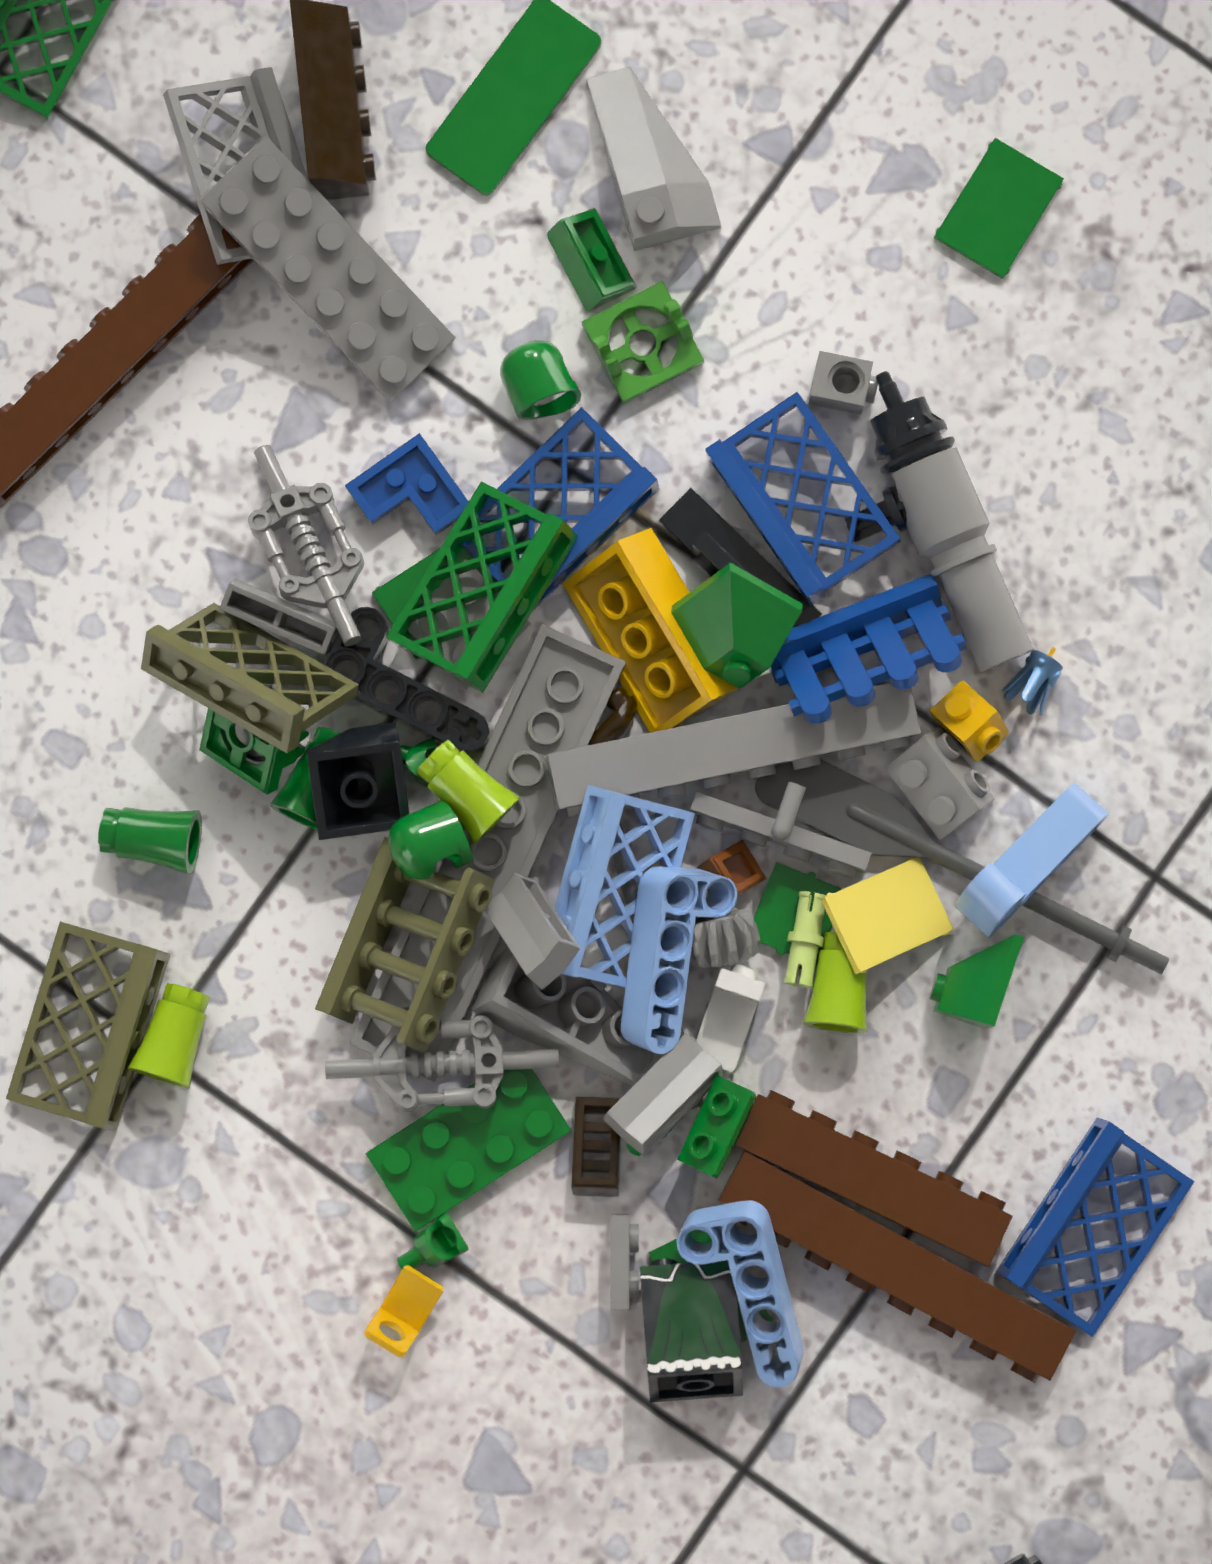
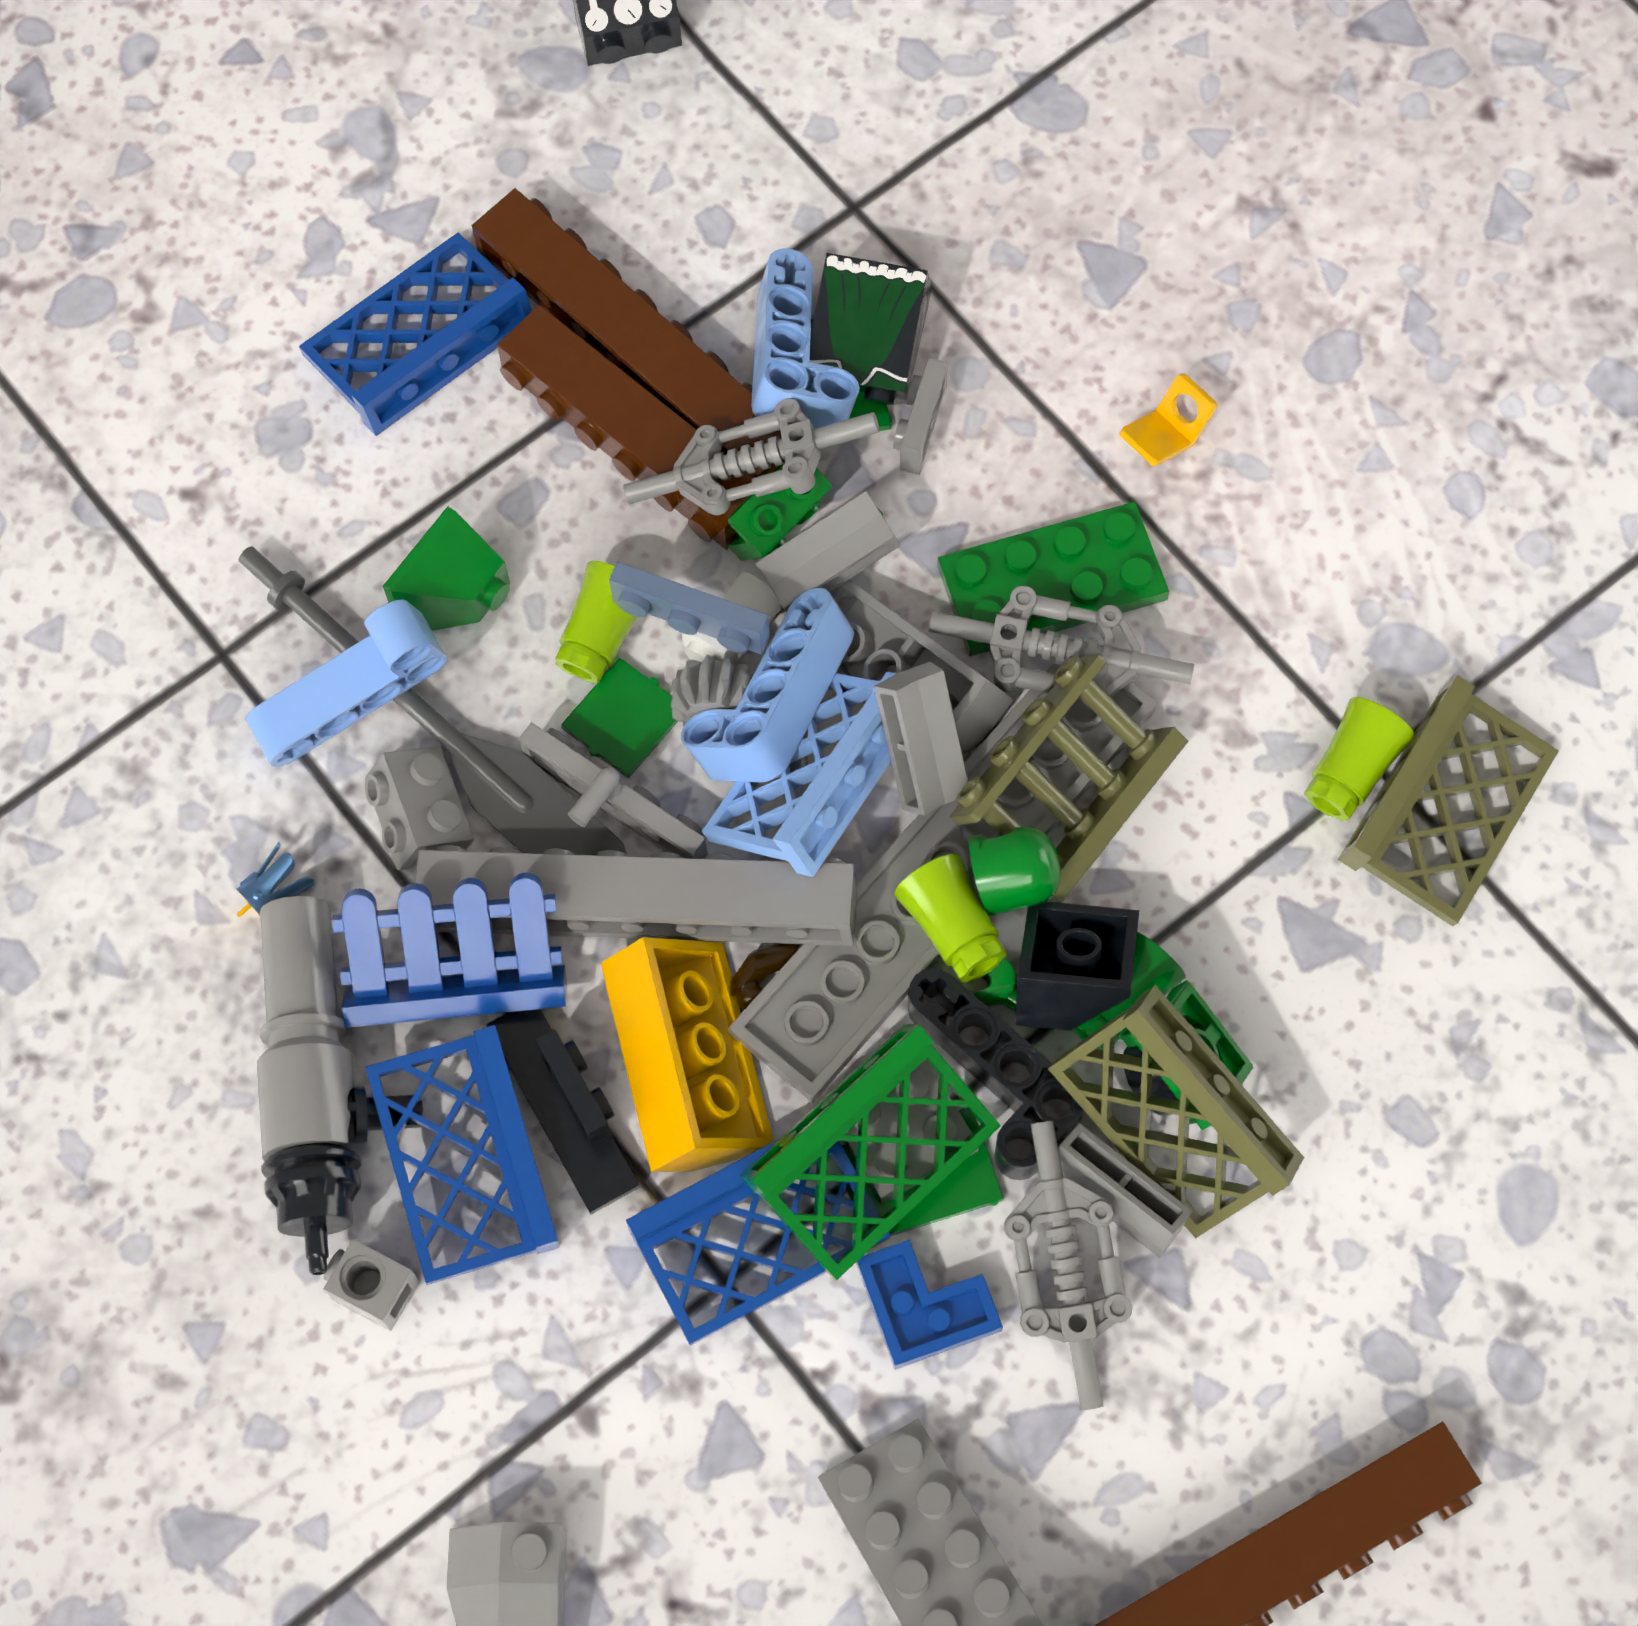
camera: 165 degrees left, 15 degrees down
(152, 836) = (1331, 981): green plant -> none
(435, 1245) = (1118, 482): green piece -> none
(535, 373) = (733, 1390): green helmet -> none
(590, 259) = (622, 1533): green slope -> none
(595, 1186) = (929, 499): dark brown slope -> none
(653, 298) = (542, 1378): bright green piece -> none
(712, 1171) = (799, 449): none -> light grey bar
(736, 624) = (587, 1010): green slope -> none
(737, 865) = (679, 779): dark orange slope -> none
(759, 988) = (689, 609): none -> sand blue plate
(805, 940) = (622, 677): yellowish green pin -> none
(887, 914) = (524, 677): light yellow piece -> none
(970, 720) = (361, 859): yellow bracket -> none
(998, 208) = (107, 1454): green piece -> none

